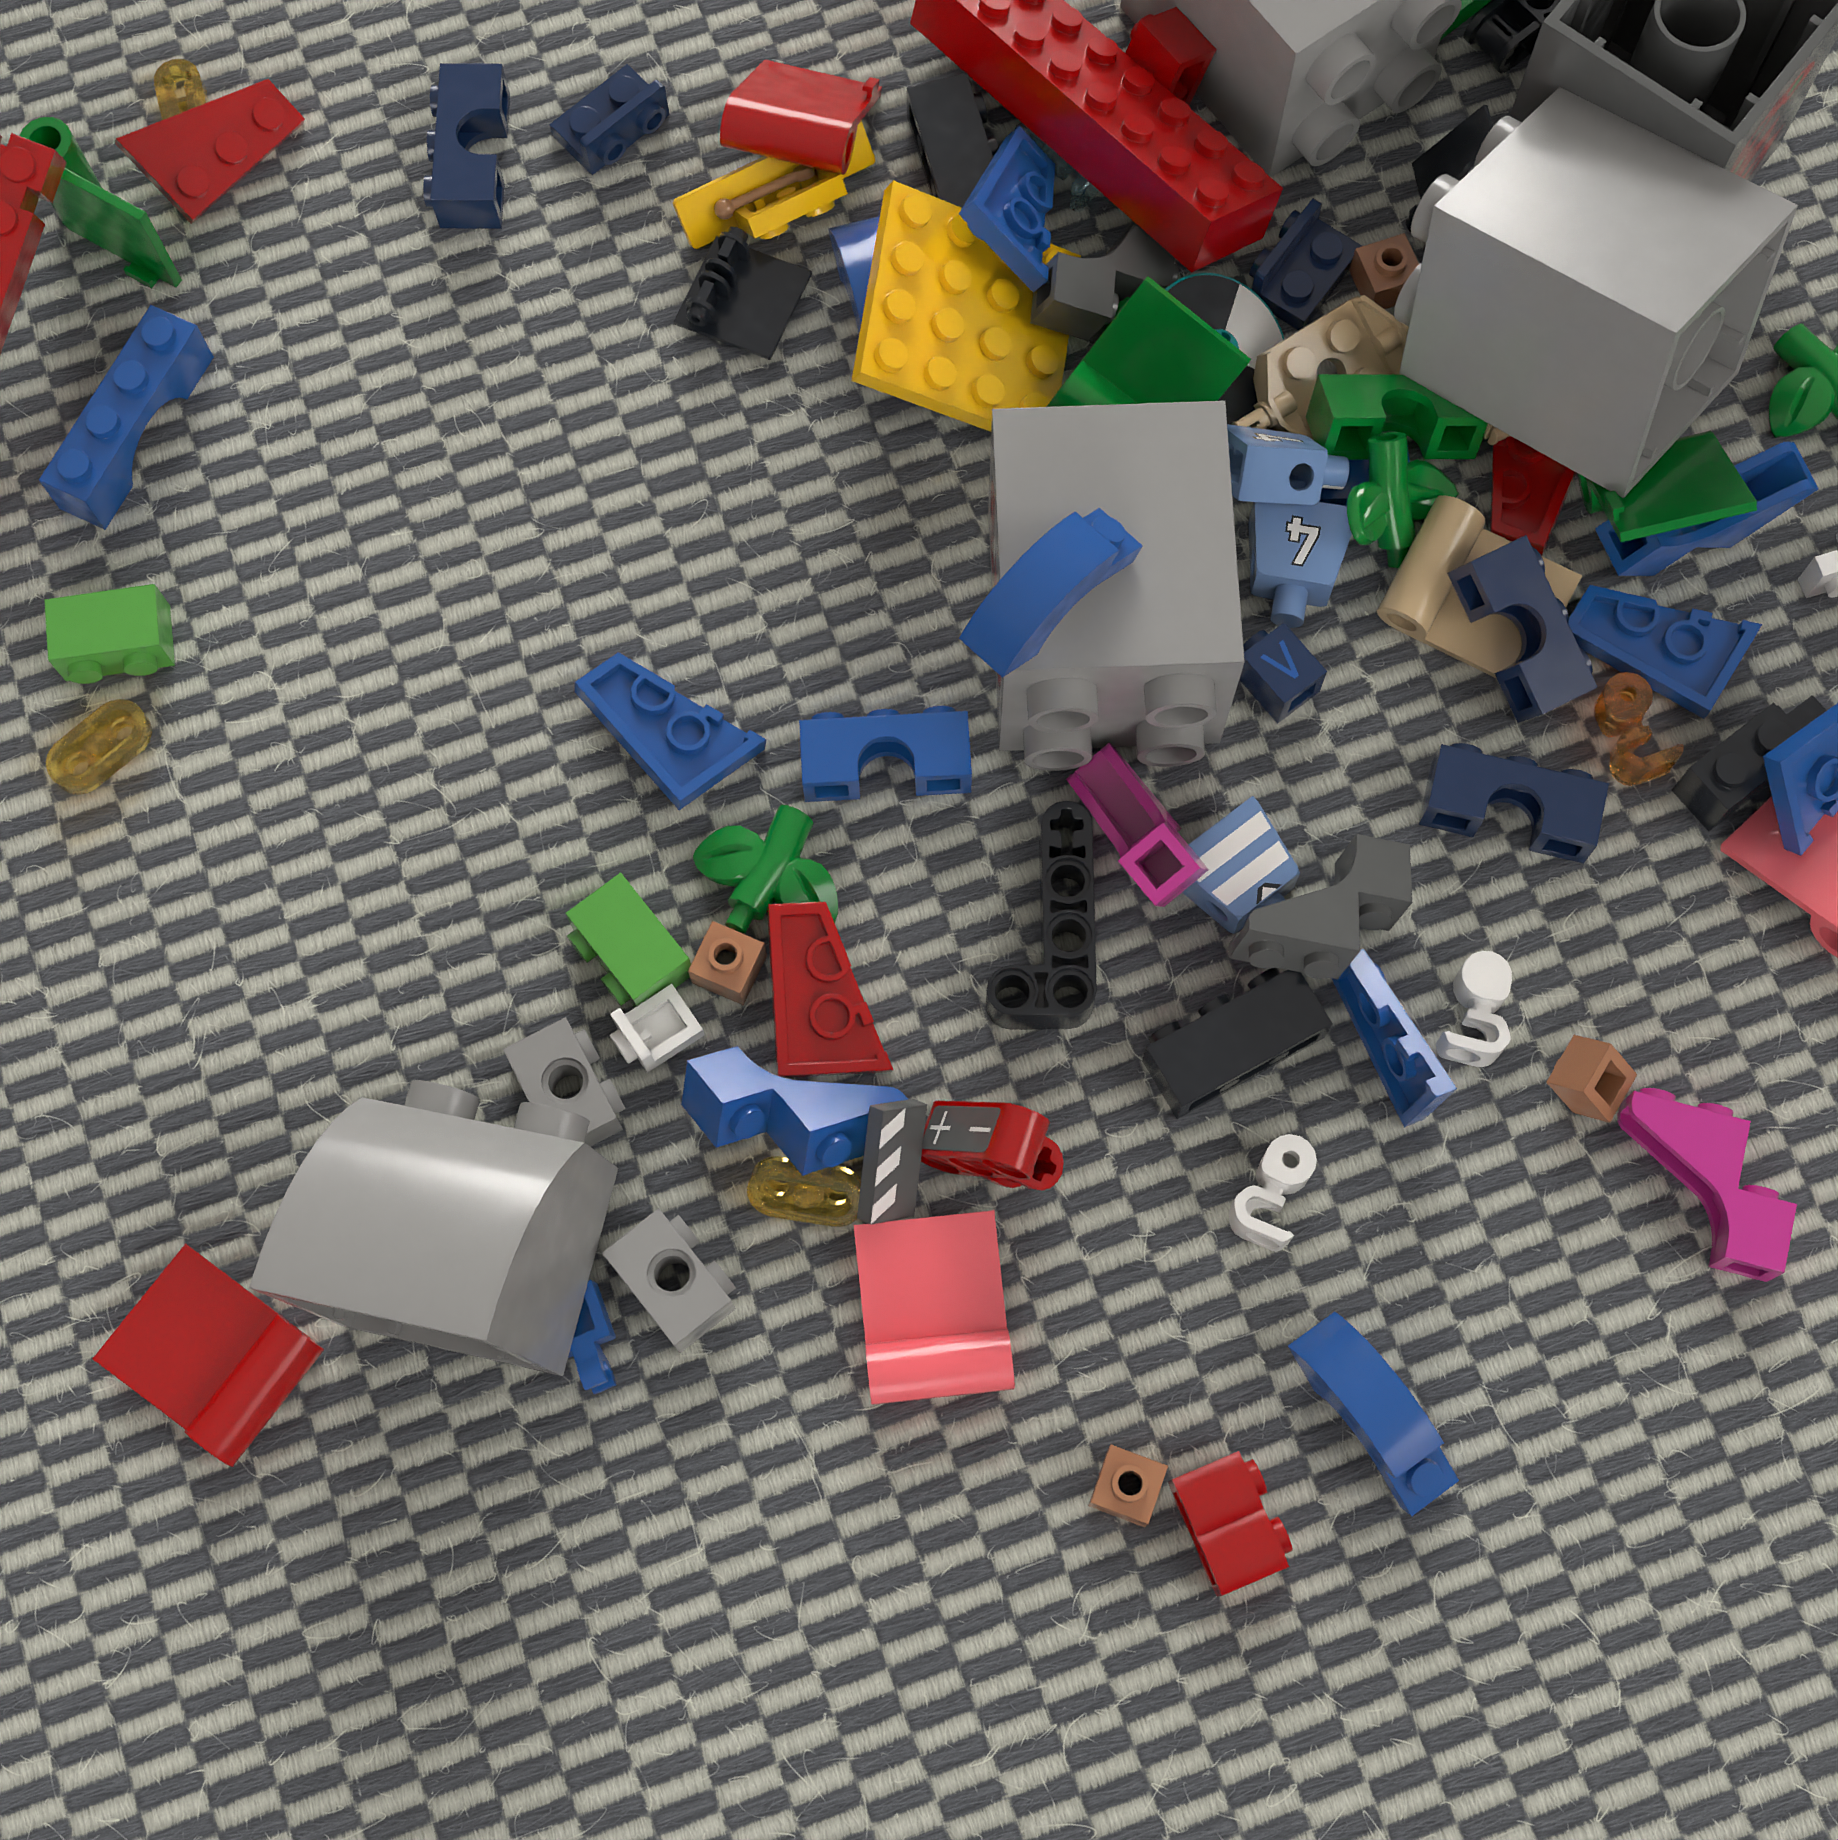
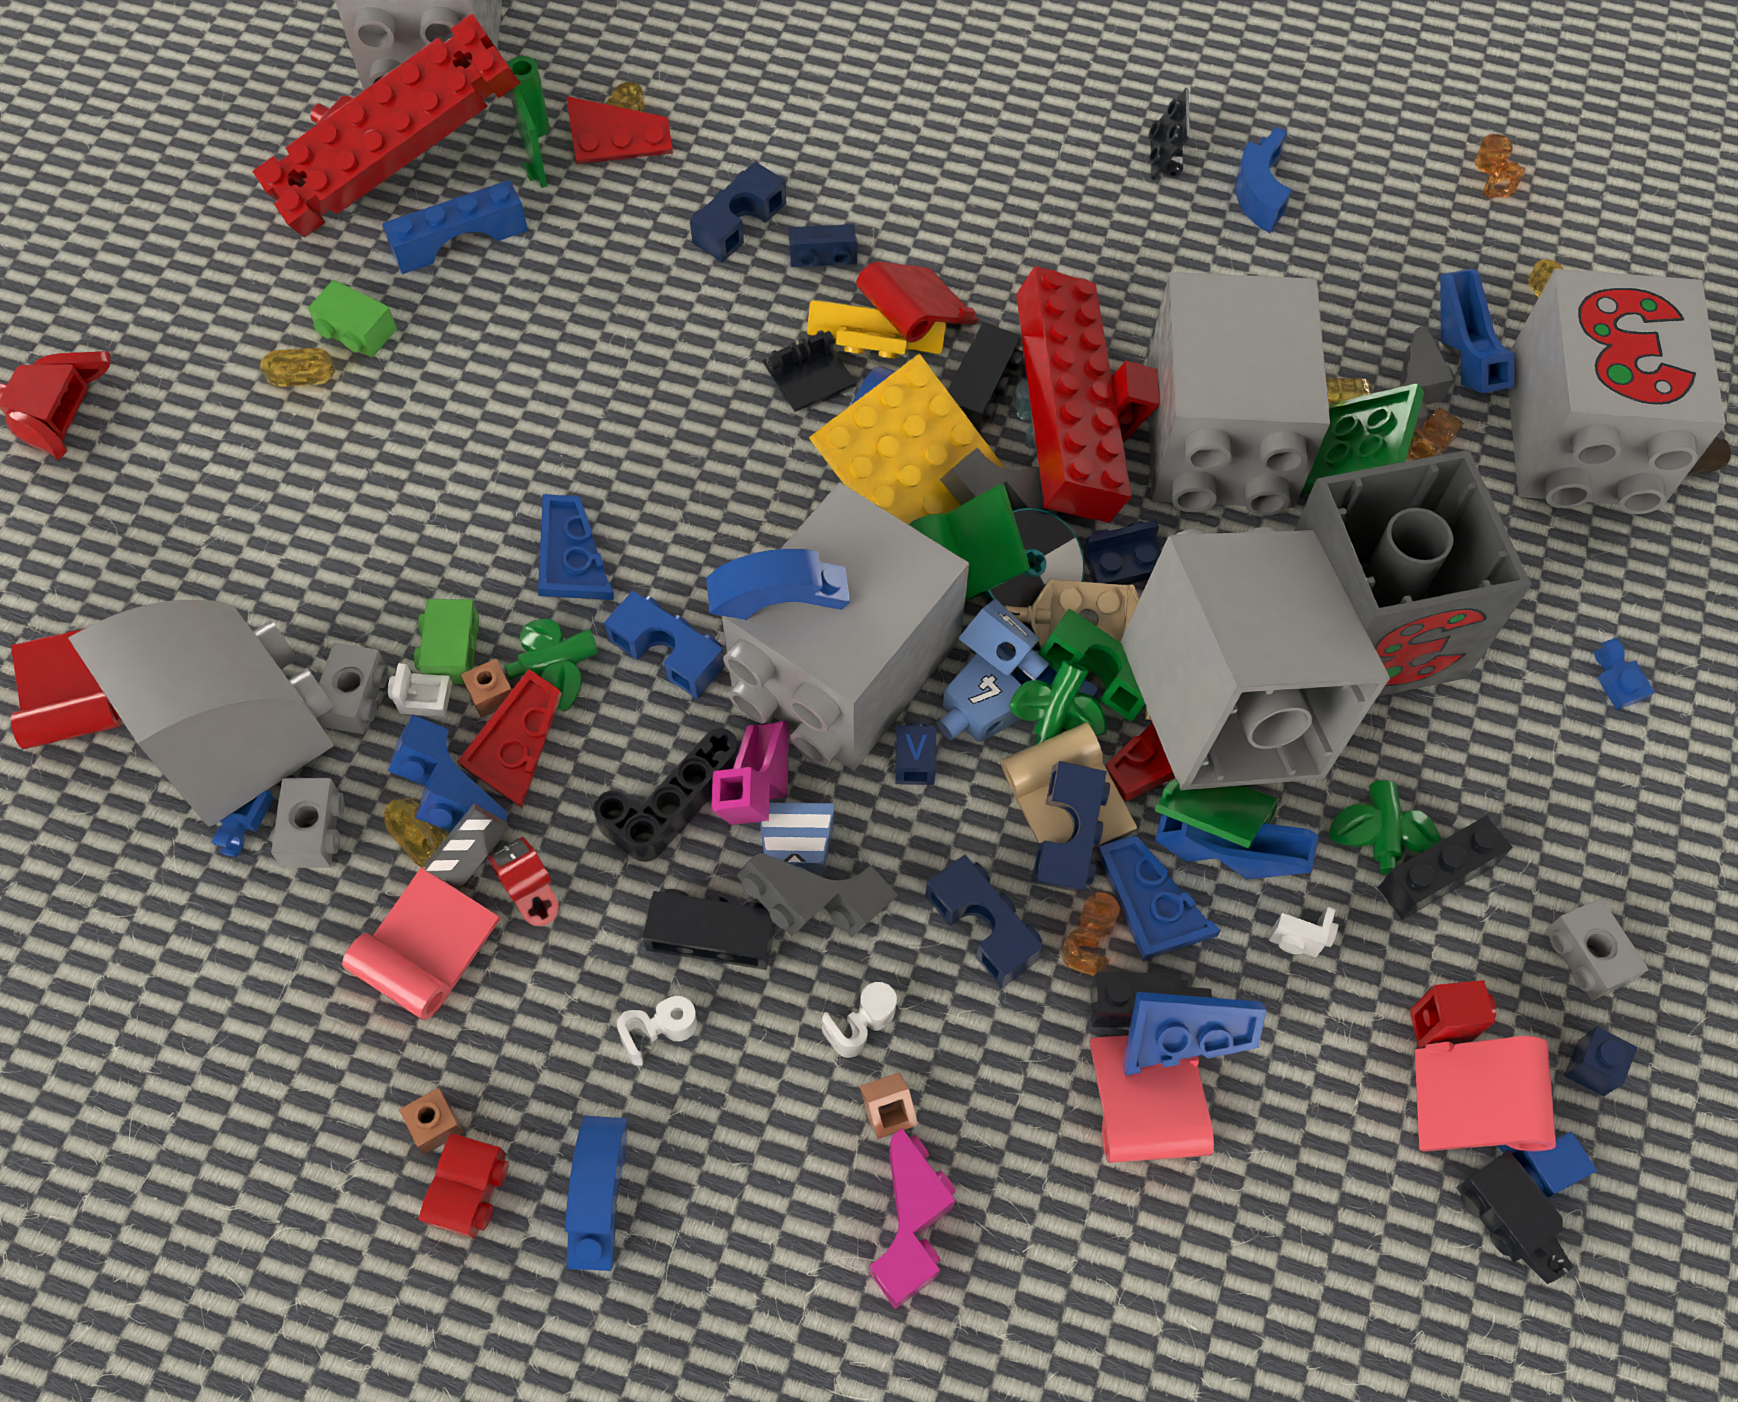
camera: 35 degrees right, 10 degrees down
(725, 208) = (836, 322): medium nougat hinge -> none
(1011, 206) = (978, 411): blue wing -> none
(1393, 1042) = (795, 993): blue wing -> none

